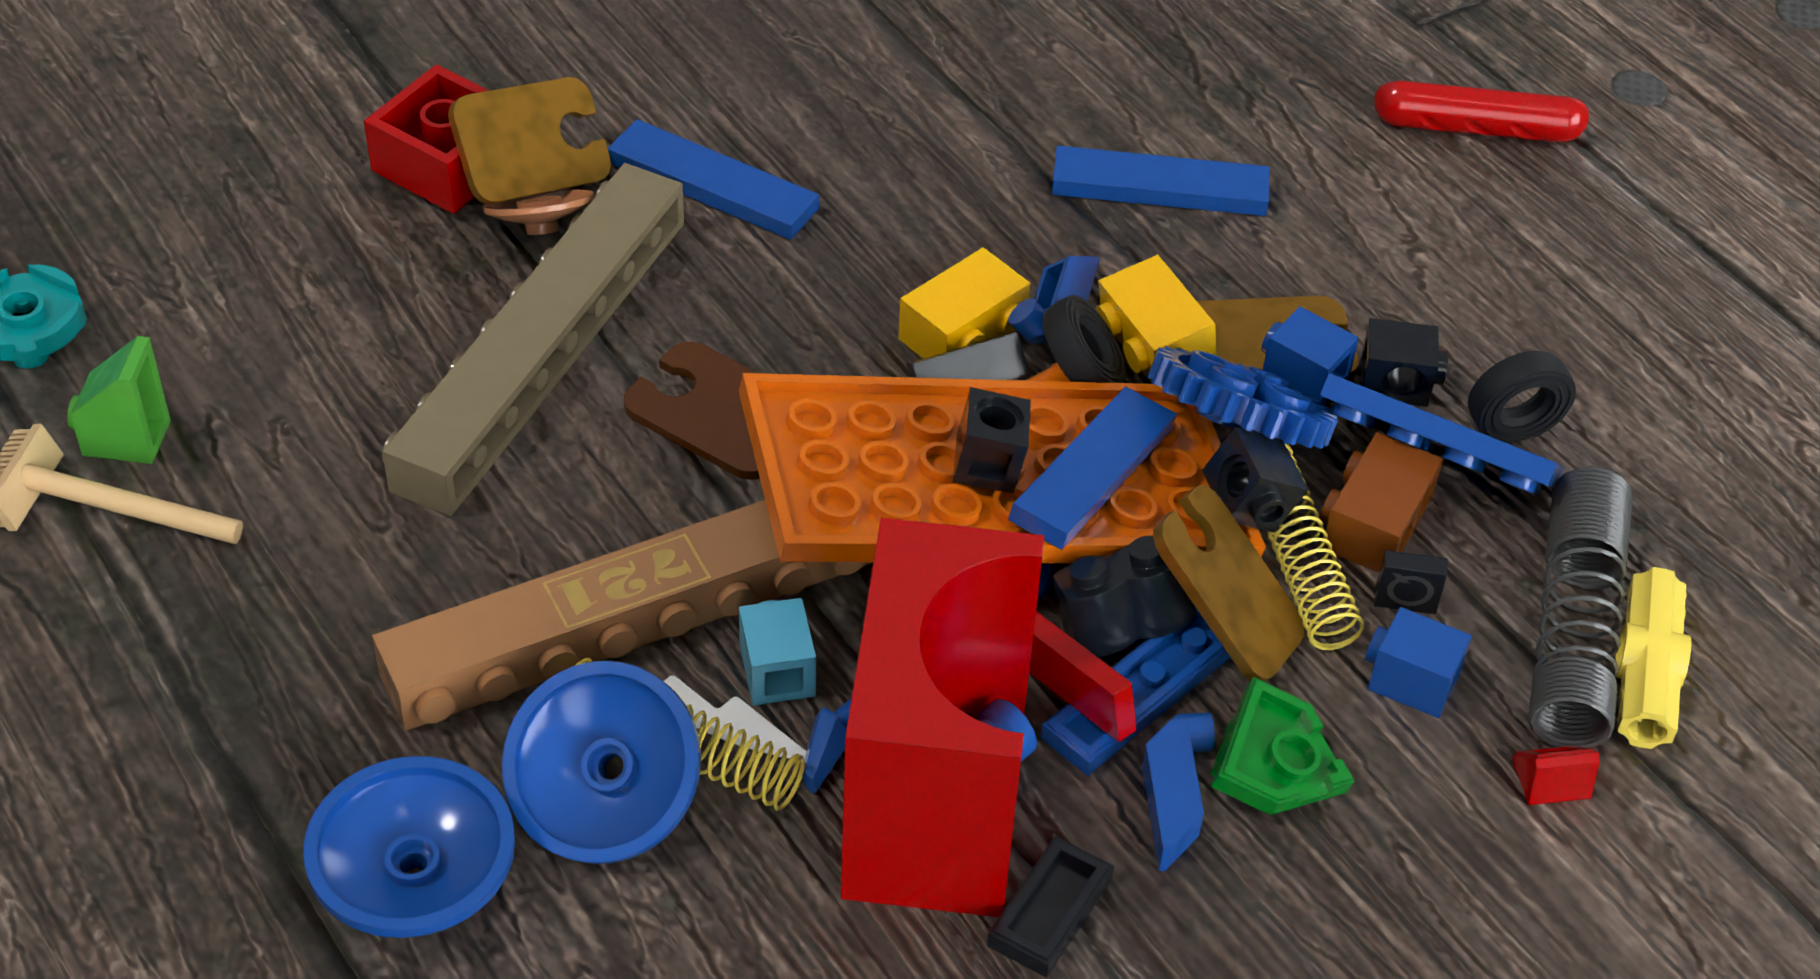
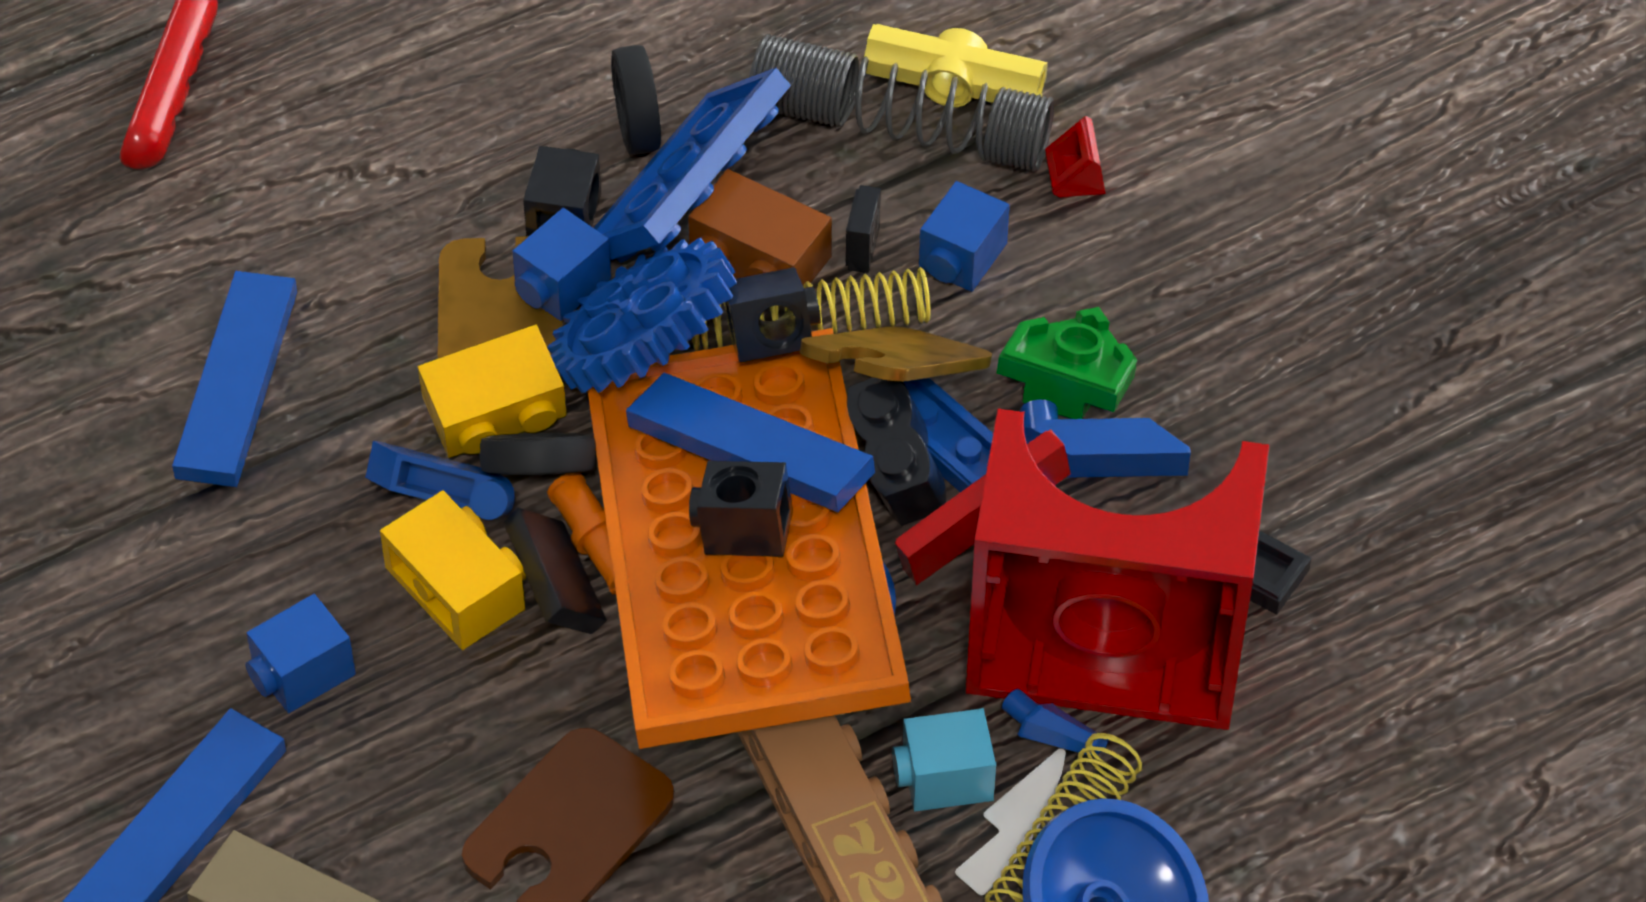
camera: 85 degrees left, 5 degrees up
(871, 226) = (299, 654): none -> blue brick

